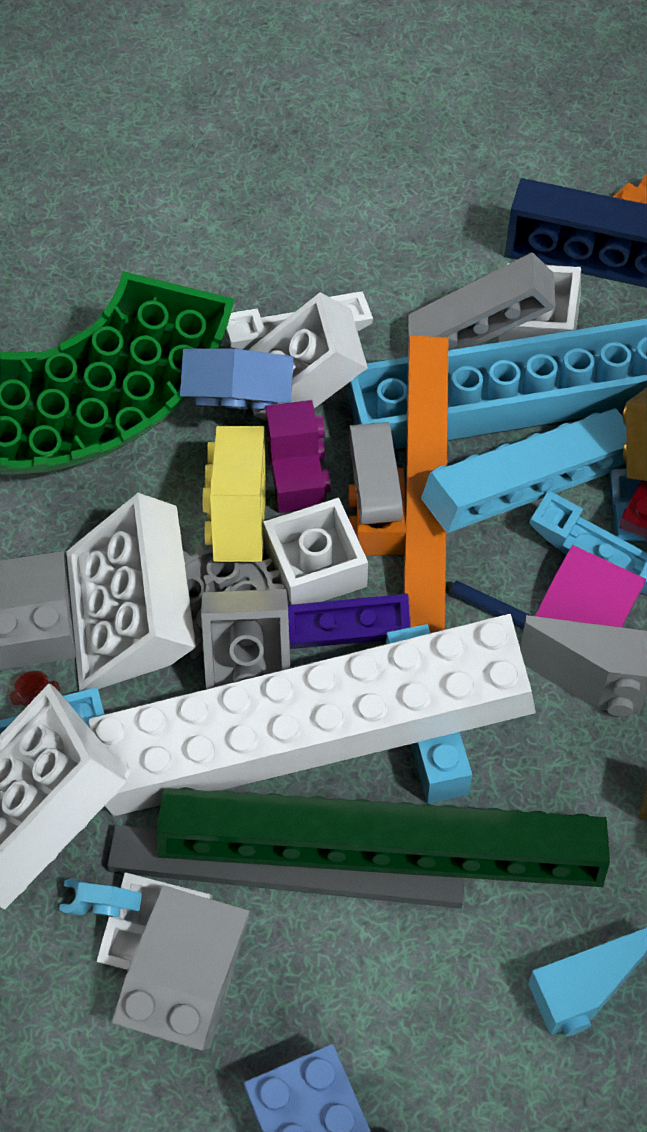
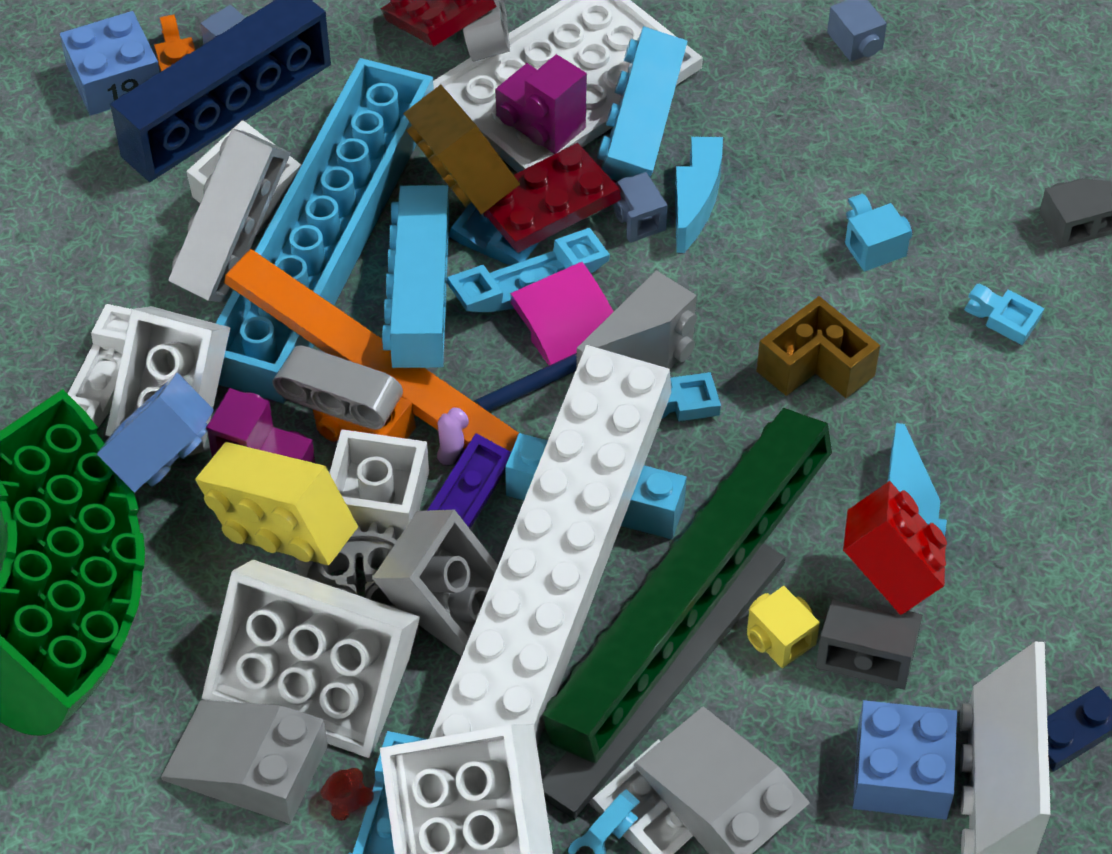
camera: 60 degrees left, 5 degrees down
(385, 936) = (782, 626): none -> light yellow brick
(399, 572) = (451, 435): none -> lavender arm
(413, 1026) = (869, 643): none -> dark grey hinge
(504, 989) = (896, 547): none -> red brick
(573, 738) = (693, 397): none -> medium azure plate
(587, 160) = (108, 59): none -> medium blue brick

